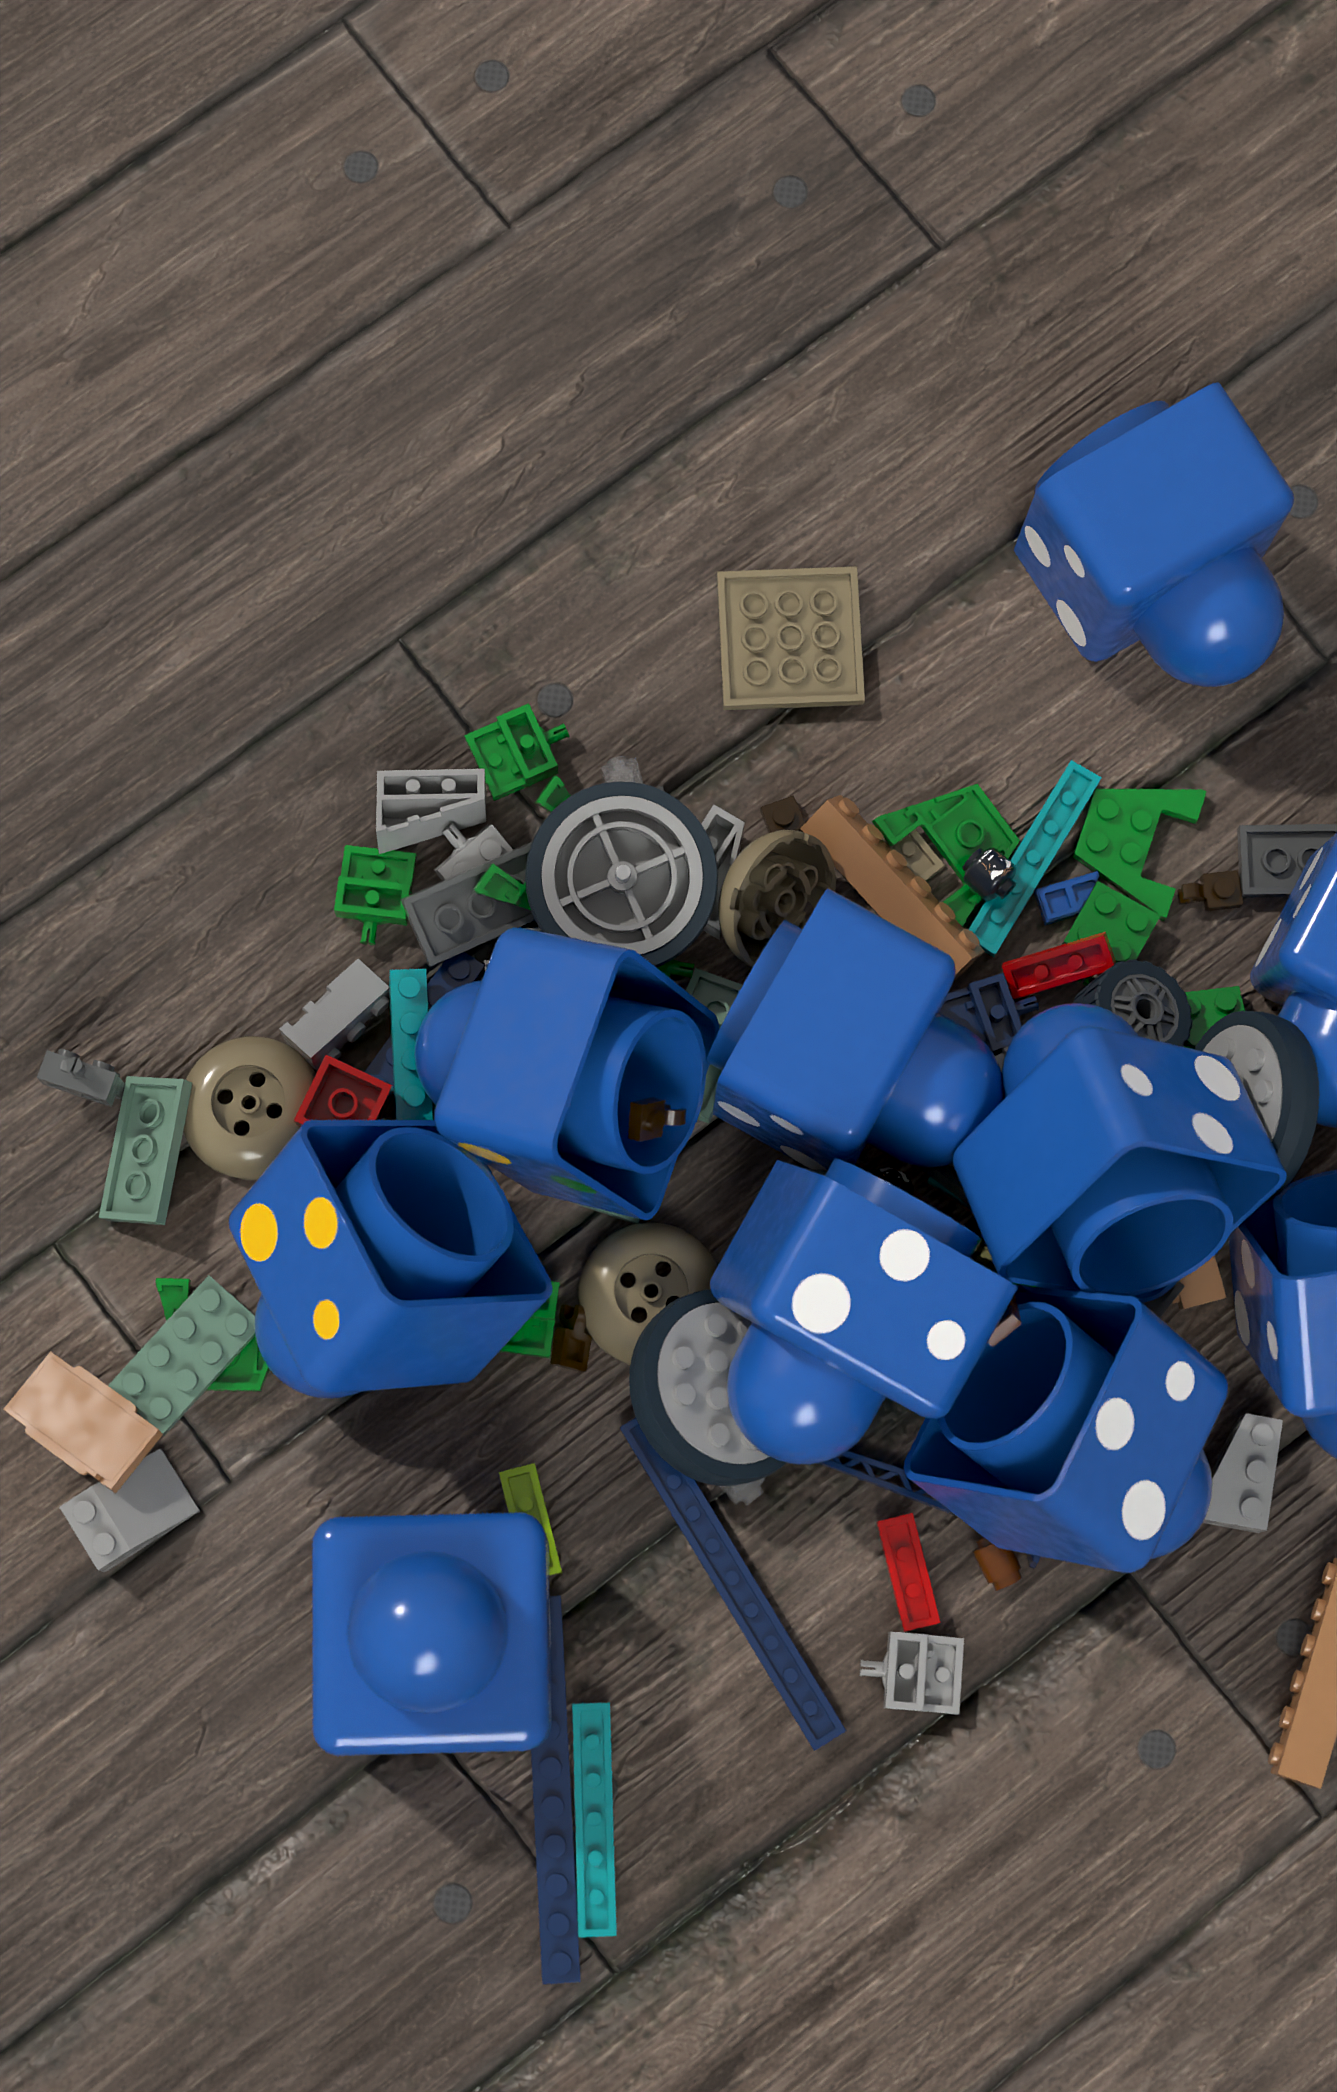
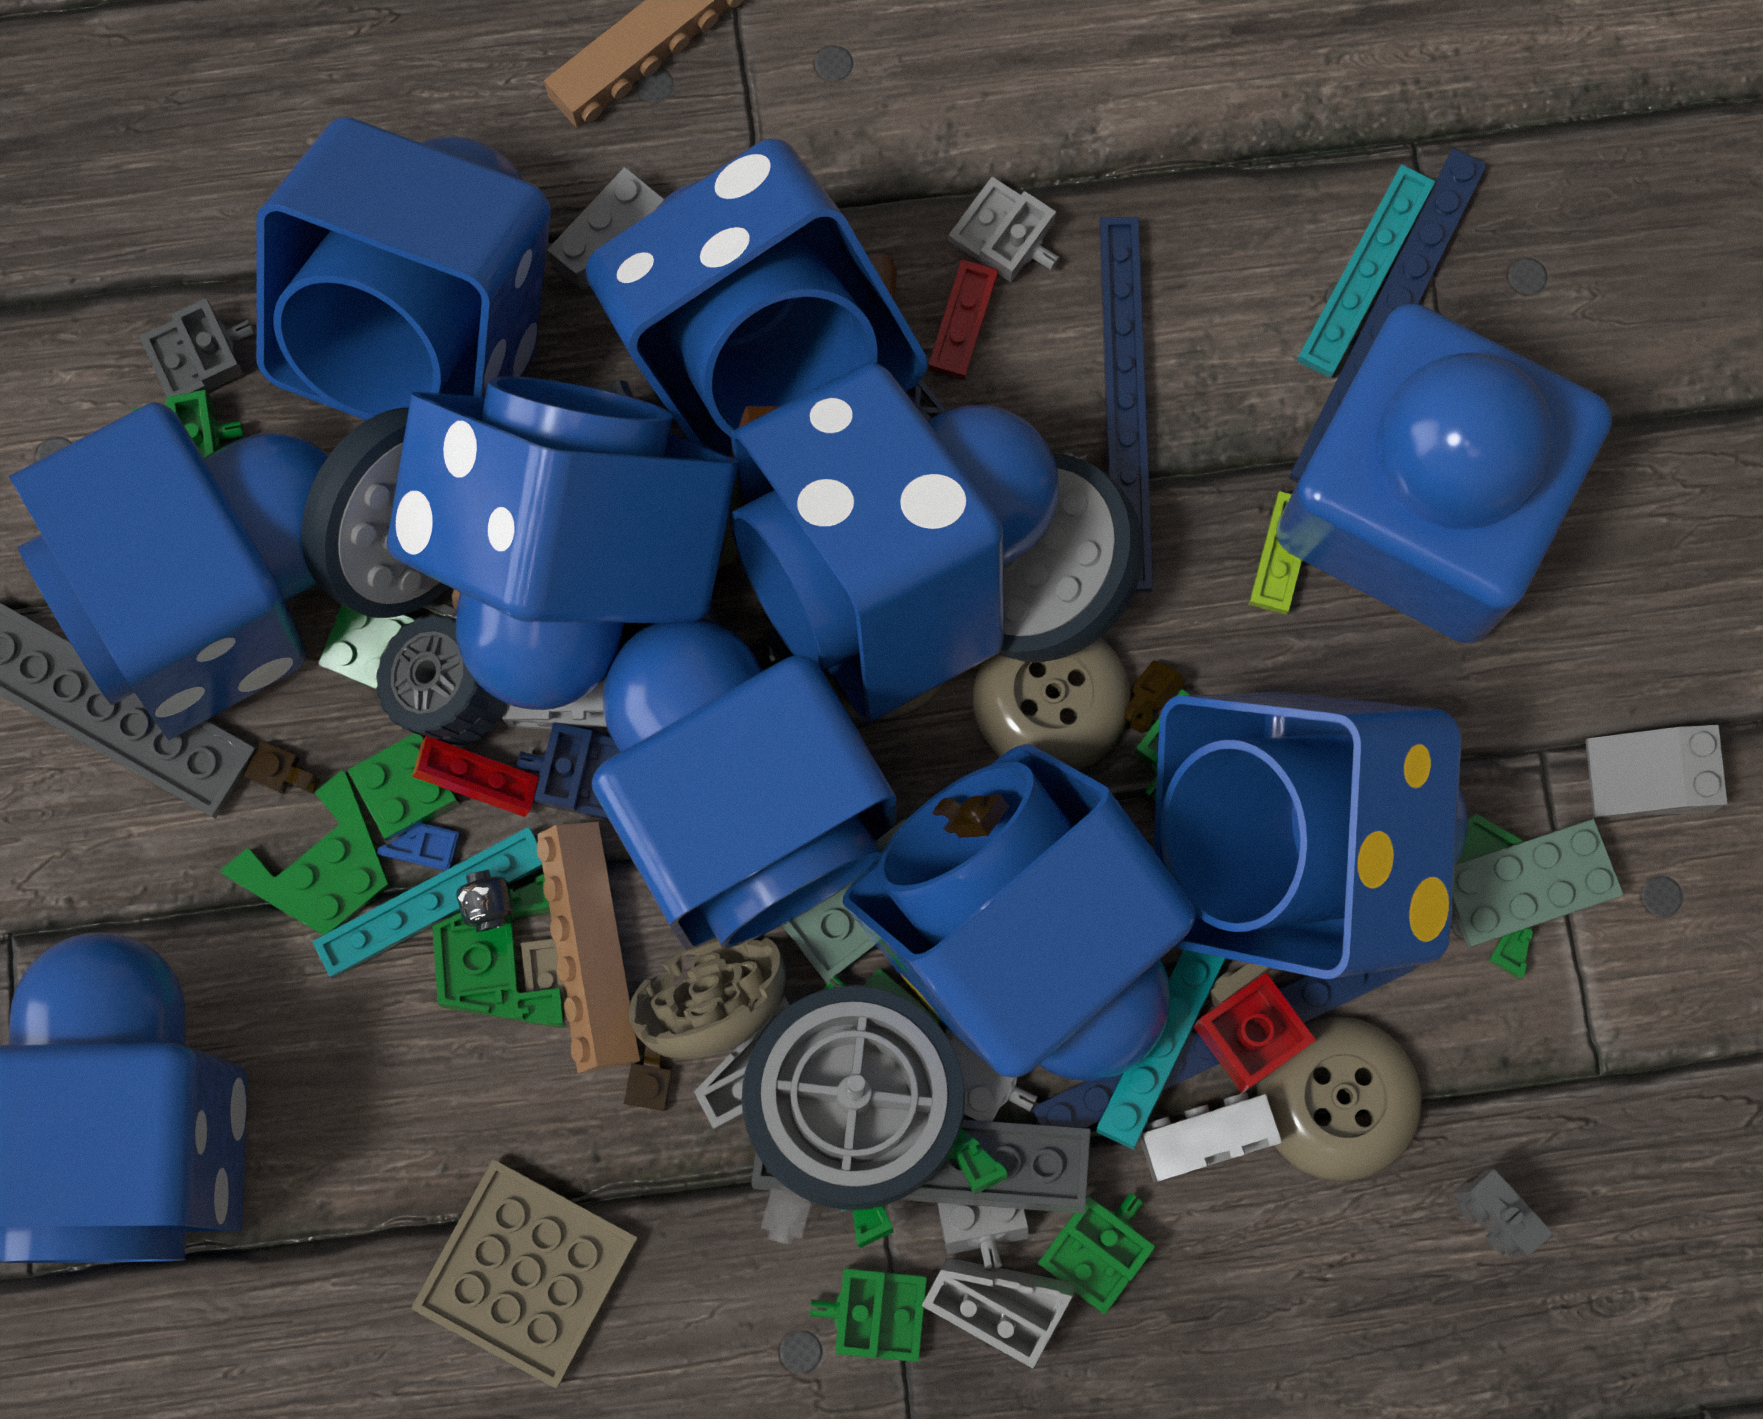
camera: 145 degrees left, 0 degrees up
(83, 1422) = (1664, 874): piece -> none
(145, 1150) = (1470, 1109): sand green plate -> none

